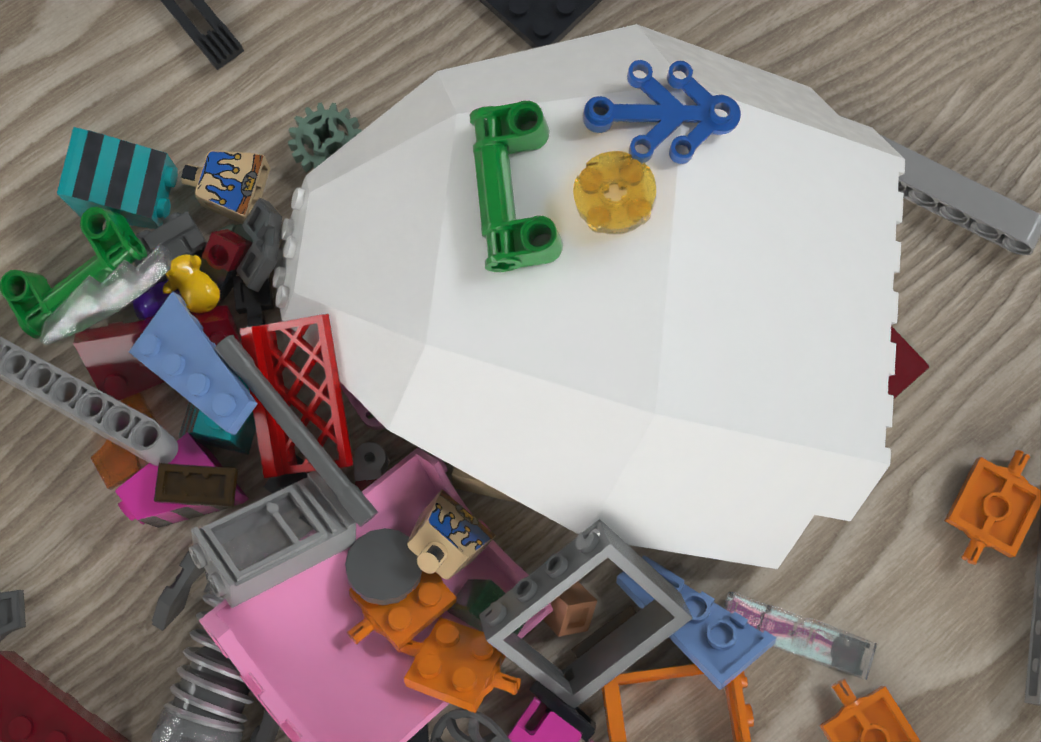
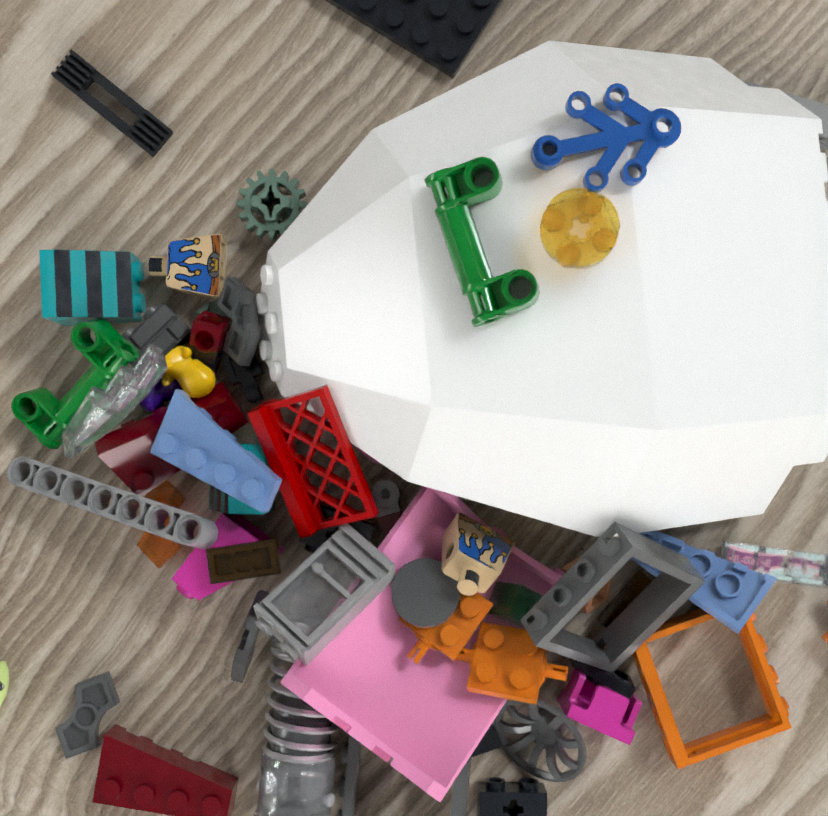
camera: 10 degrees left, 10 degrees up
(244, 366) = (381, 540): dark grey piece -> none

